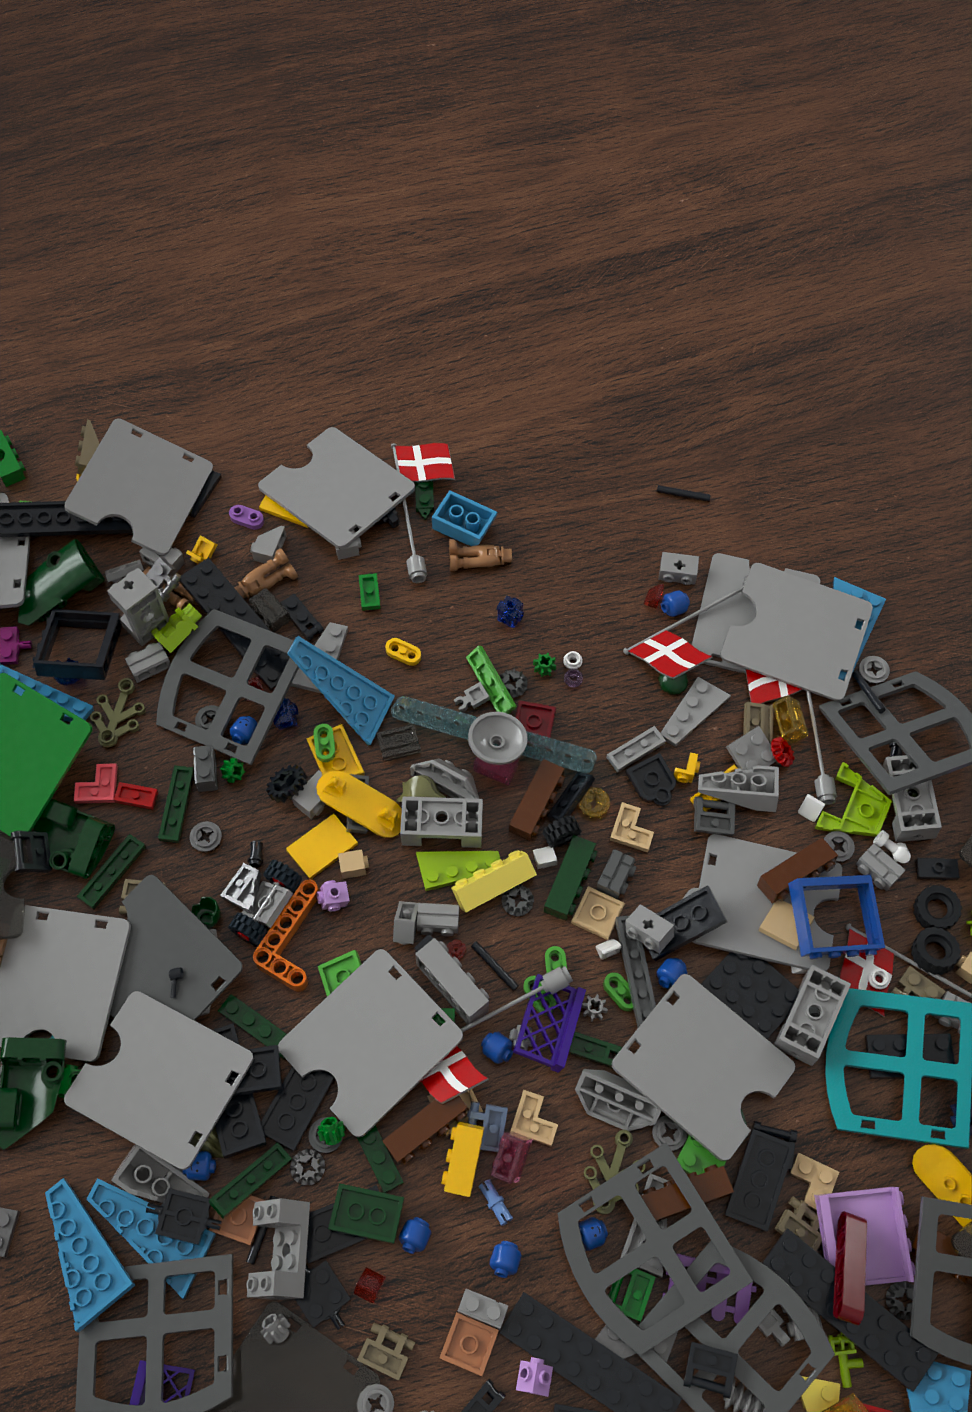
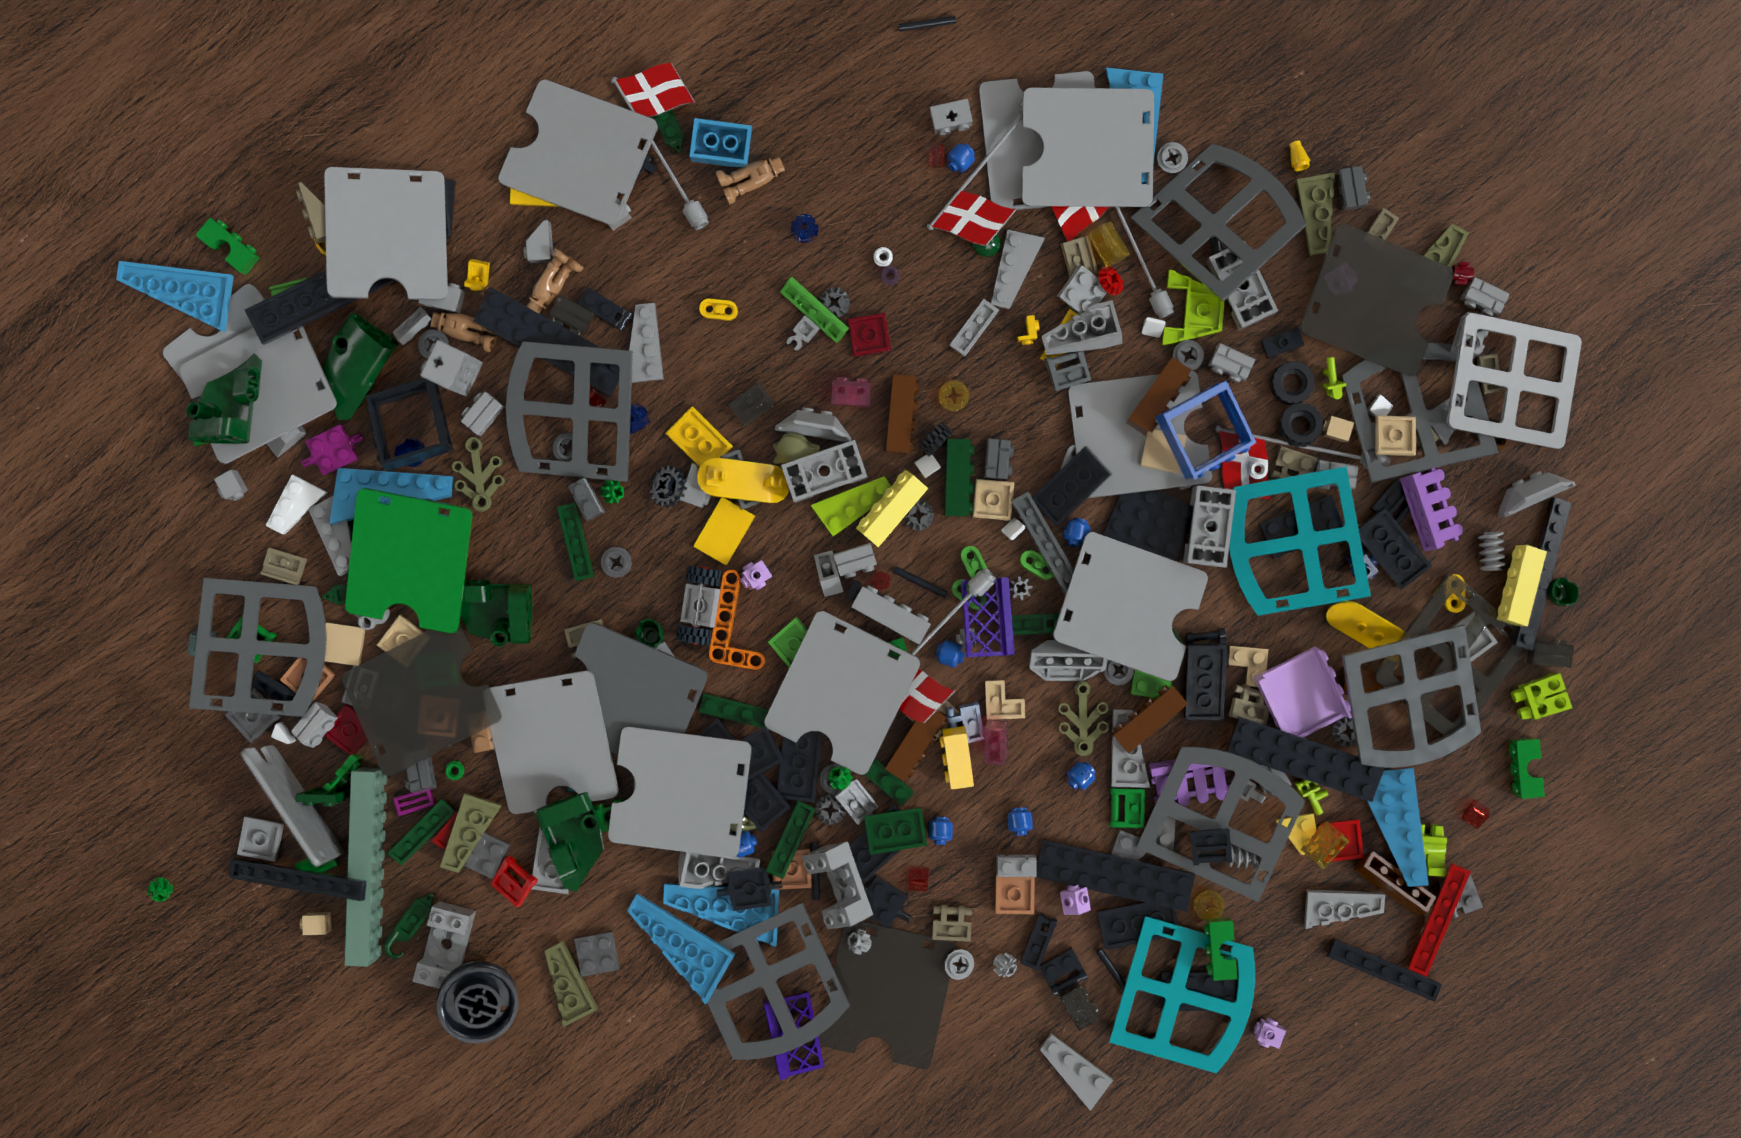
camera: 20 degrees left, 25 degrees up
(37, 851) = (476, 637): black plate -> none
(102, 789) = (501, 554): coral plate -> none
(111, 871) = (548, 626): dark green plate -> none
(136, 795) = (535, 548): red plate -> none
(160, 574) = (450, 325): flat silver plate -> none
(174, 975) = (652, 701): black hand -> none
(178, 627) = (495, 371): lime hips -> none
(243, 729) = (604, 448): blue head -> none
(243, 888) = (672, 598): flat silver wing -> none
(245, 517) = (501, 218): medium lavender plate -> none
(255, 859) = (669, 563): black pin -> none
(324, 744) = (685, 434): bright green plate -> none
(338, 1165) = (856, 801): none -> flat silver plate
(351, 694) = (686, 376): dark azure wing -> none
(353, 864) = (760, 538): tan brick -> none
(369, 592) = (659, 257): green plate -> none
(450, 716) = (837, 364): clear light blue beam -> none
(495, 1202) = (995, 779): medium blue pin -> none
(501, 730) = (849, 363): light grey dish -> none
(544, 664) = (858, 267): green gear -> none
(571, 796) = (931, 399): black tile -> none
(627, 832) = (994, 415): tan plate -> none
(649, 928) = (1038, 497): light grey brick -> none
(653, 780) = (1000, 353): black plate -> none
(658, 1244) = (1139, 768): dark grey window -> none
(850, 1268) = (1299, 730): dark red beam -> none
(868, 691) = (1173, 186): black bar -> none
(899, 850) = (1244, 339): white leg -> none

